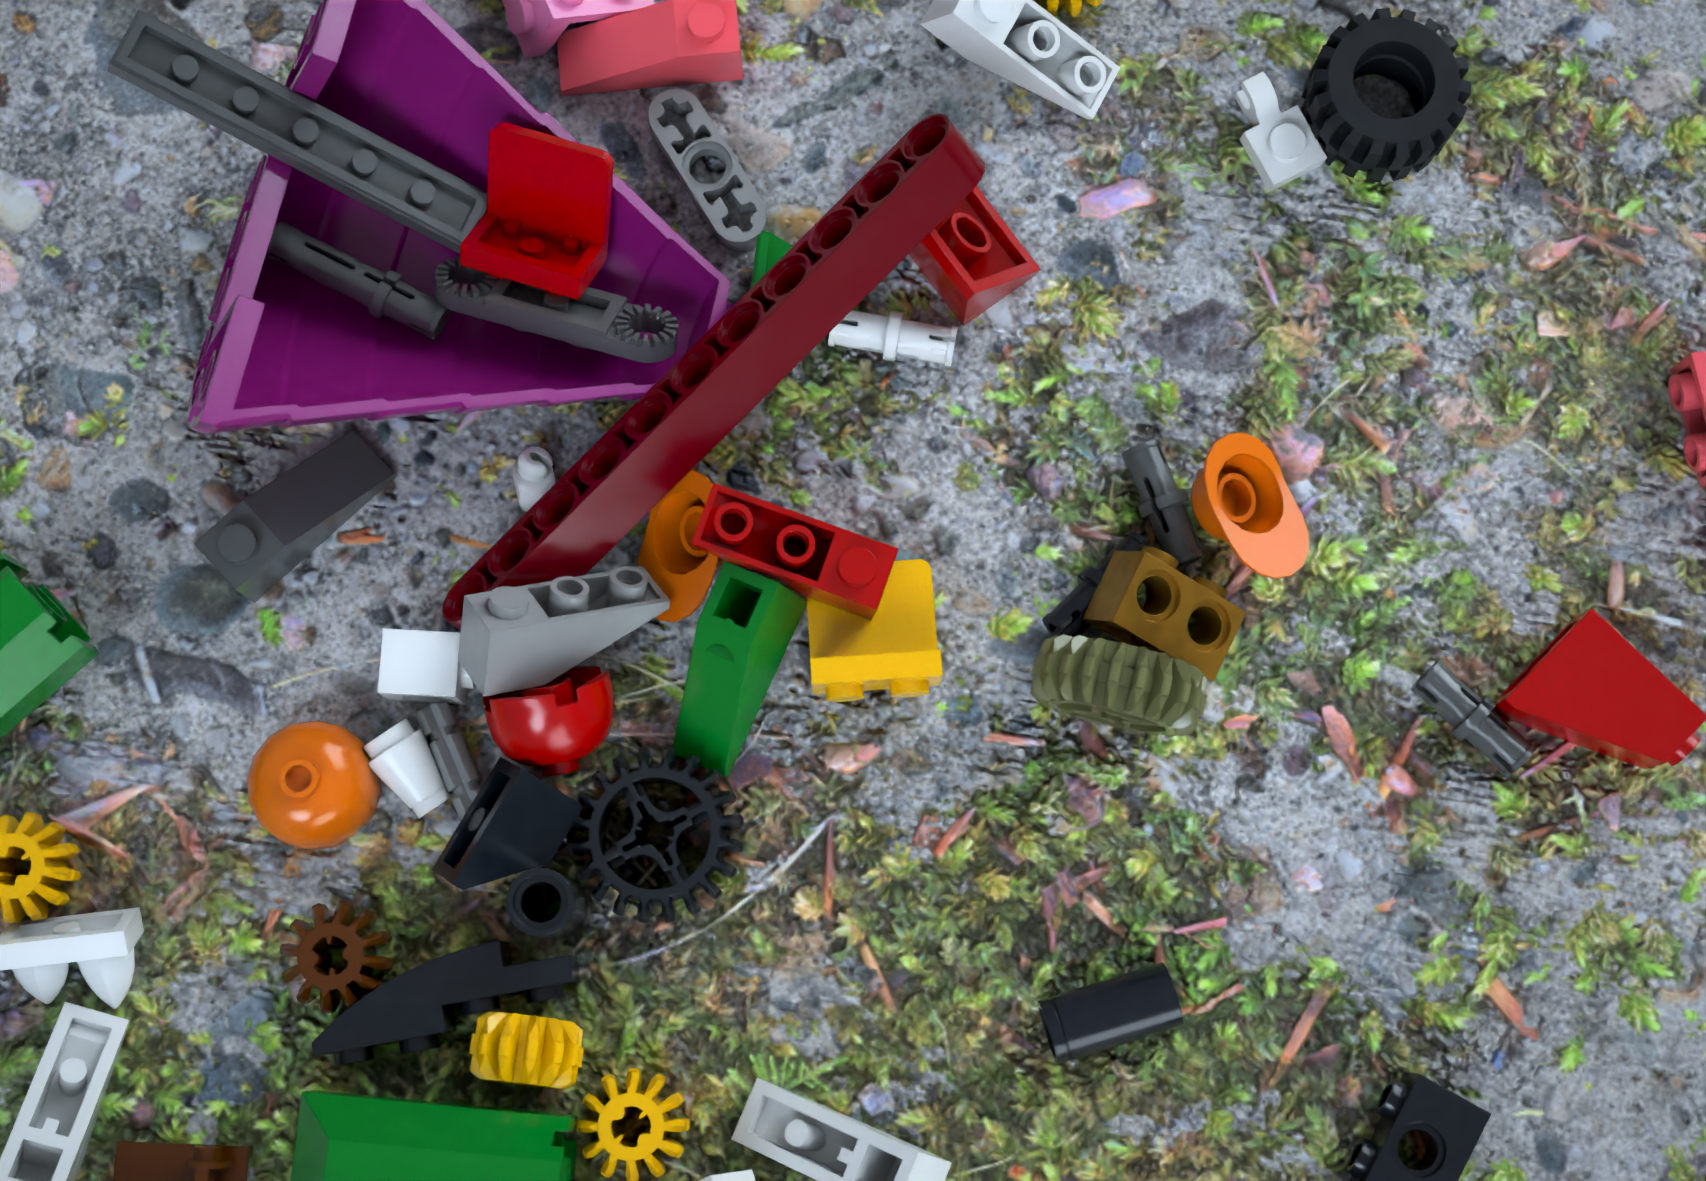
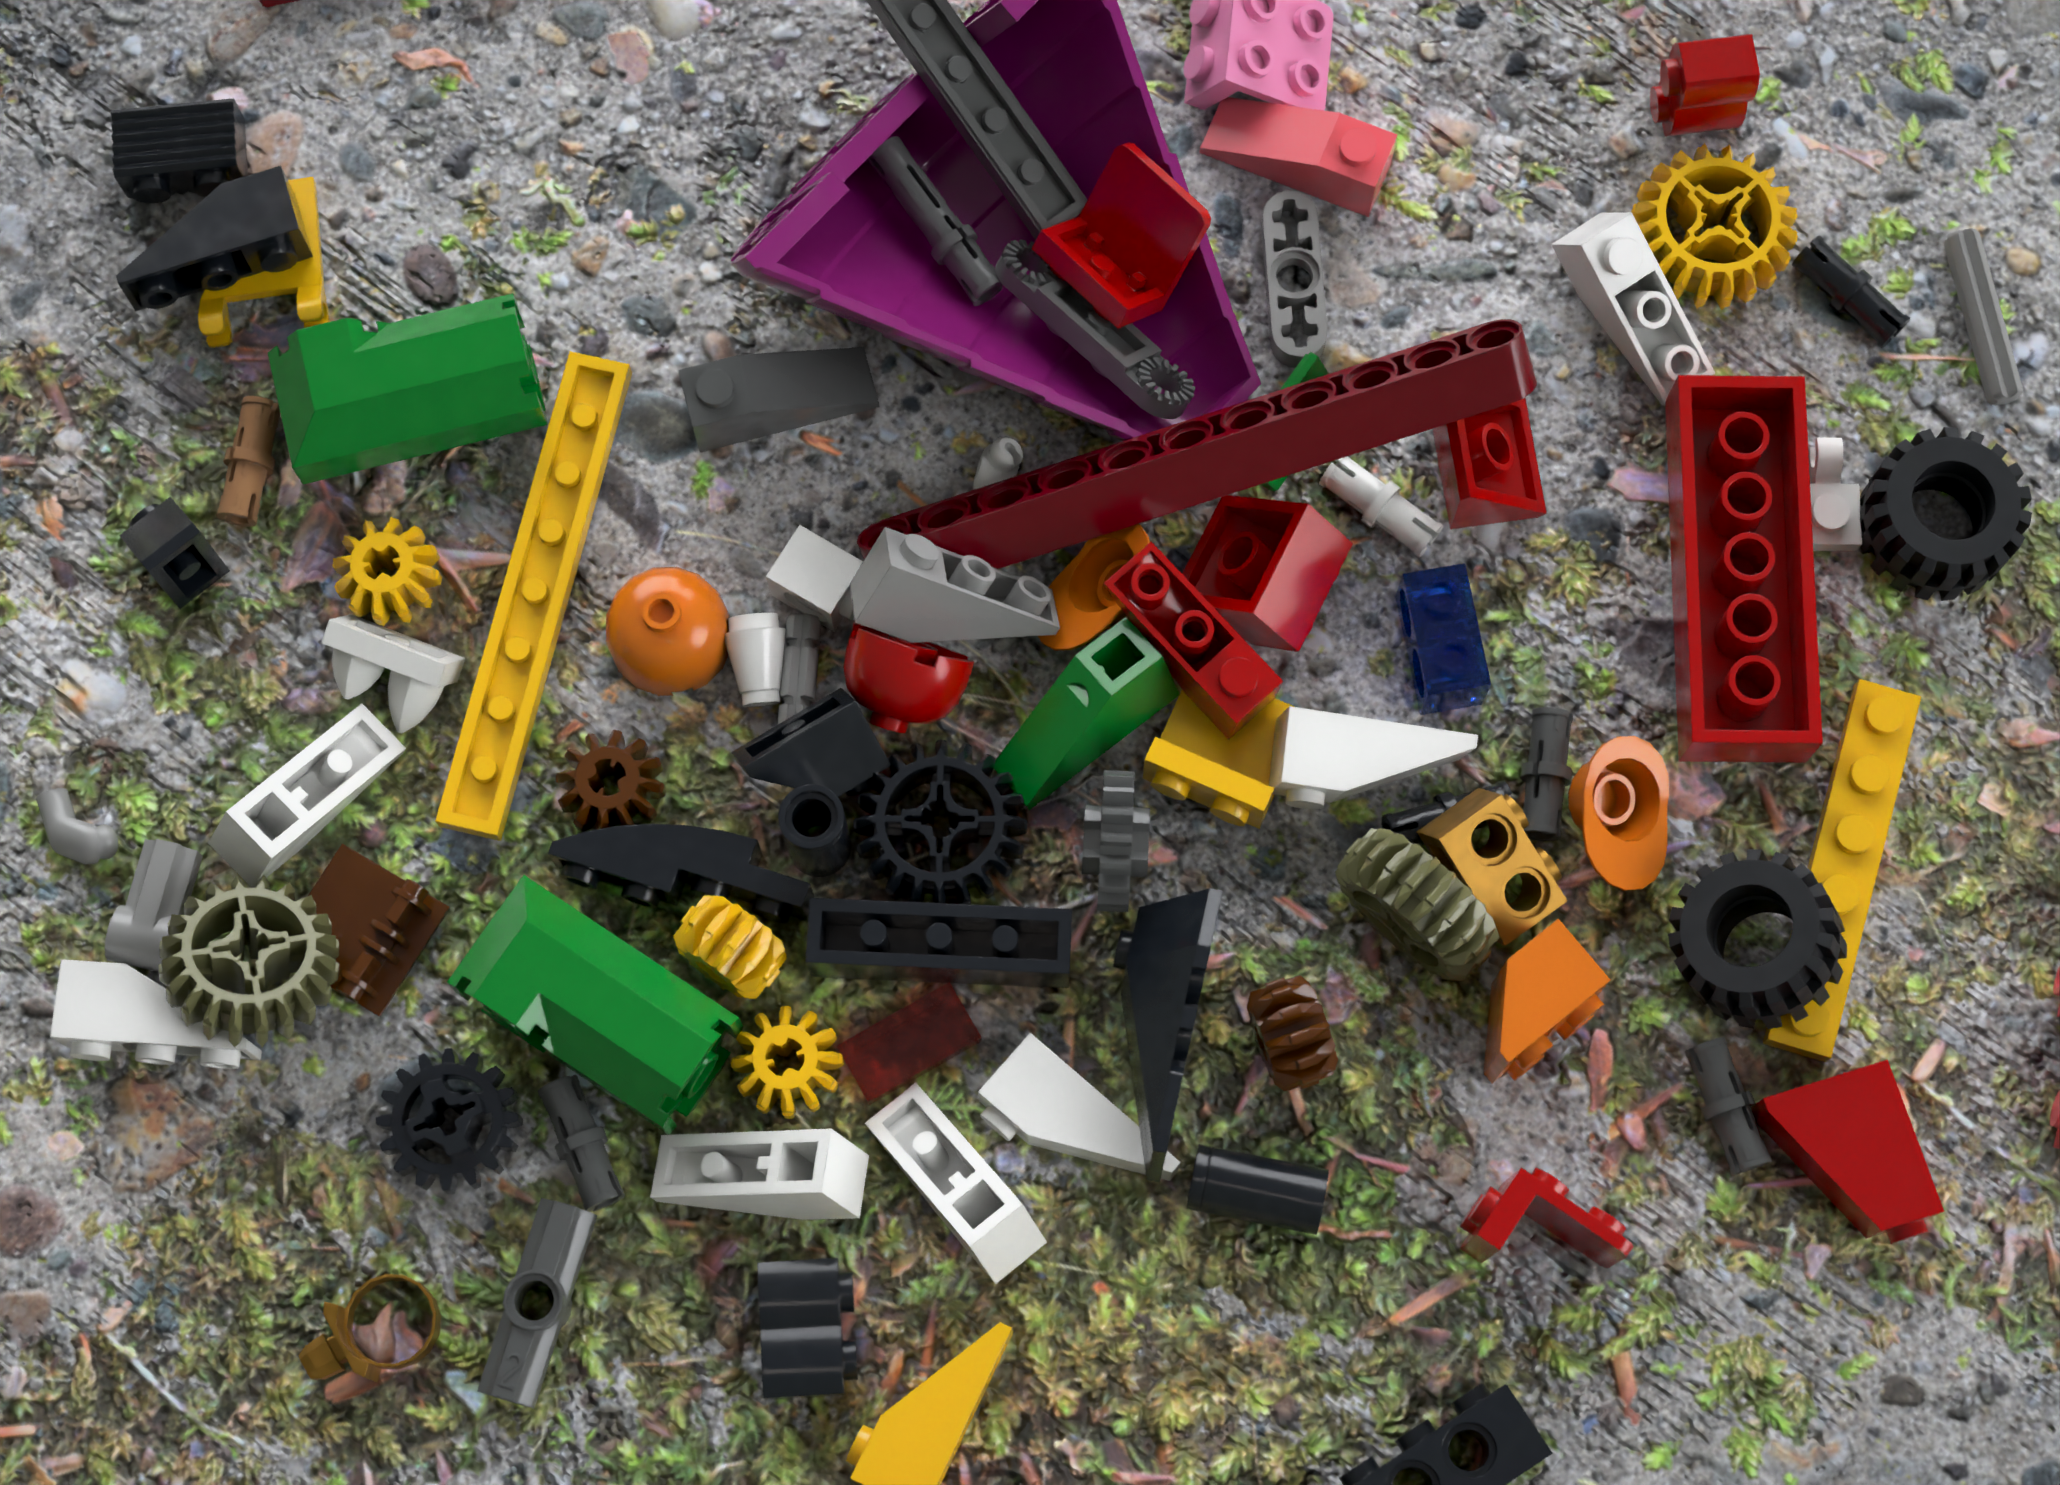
camera: 30 degrees right, 5 degrees down
(172, 818) = (534, 597): none -> yellow plate
(712, 945) = (939, 942): none -> black brick
(732, 1045) = (909, 1043): none -> clear red tile
(823, 448) = (1267, 567): none -> red slope
(824, 770) = (1116, 841): none -> dark grey gear
(898, 1037) = (1061, 1111): none -> white slope
(933, 880) = (1160, 1002): none -> black wedge
(980, 585) = (1339, 755): none -> white slope
(1012, 431) = (1442, 639): none -> clear blue brick
(1069, 859) = (1292, 1033): none -> reddish brown gear
(1240, 233) = (1742, 570): none -> red brick
(1266, 714) = (1539, 992): none -> orange slope
(1336, 926) = (1543, 1201): none -> red bracket
(1384, 525) = (1726, 899): none -> black tyre
(1458, 456) = (1852, 842): none -> yellow plate

